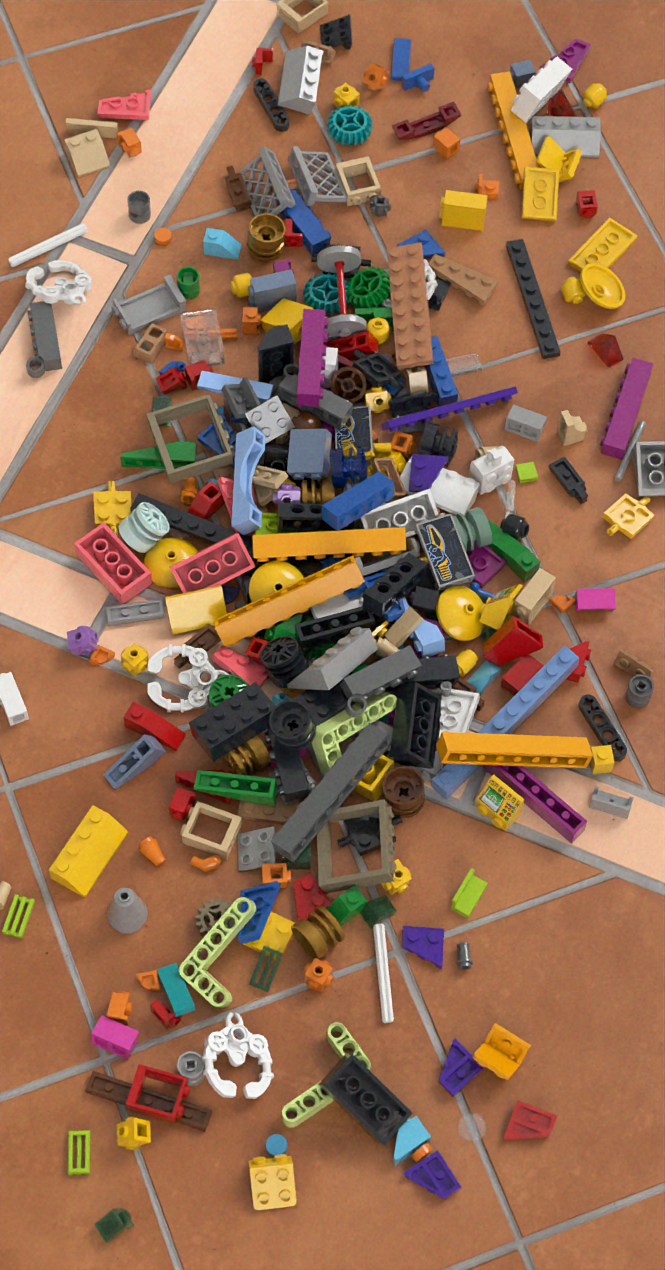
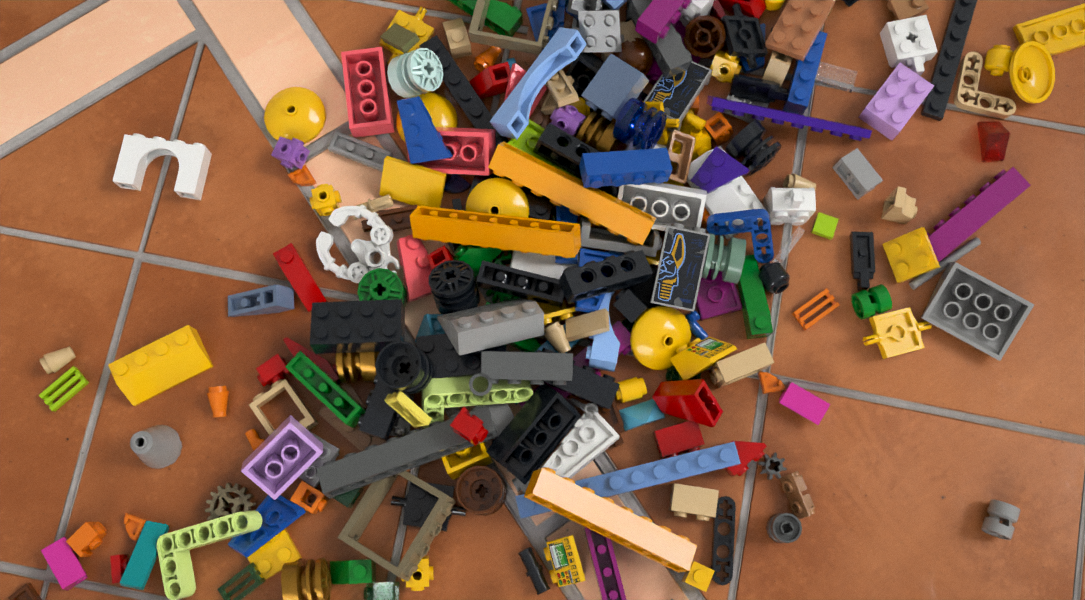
camera: 35 degrees right, 15 degrees up
(55, 623) = (303, 123): none -> yellow dish
(114, 508) = (400, 38): none -> olive tile
(154, 486) = (457, 38): none -> tan slope
(178, 640) = (377, 204): none -> tan axle
(183, 562) = (420, 134): none -> blue wing
(238, 851) = (282, 457): none -> lavender brick
(308, 896) = (325, 539): red wing -> none
(315, 754) = (408, 409): none -> light yellow tile
(369, 740) = (469, 427): none -> red brick
(473, 496) = (749, 225): none -> blue beam
(480, 828) = (534, 570): none -> black pin
(500, 313) = (909, 43): none -> white hinge
(519, 358) = (896, 101): none -> lavender brick
(563, 712) = (694, 501): none -> tan brick
(564, 521) = (829, 299): none -> orange tile
(568, 323) = (971, 92): none -> tan beam
(596, 504) = (874, 300): none -> green wheel
(602, 457) = (911, 255): none -> yellow plate
(602, 651) = (777, 469): none -> dark grey gear

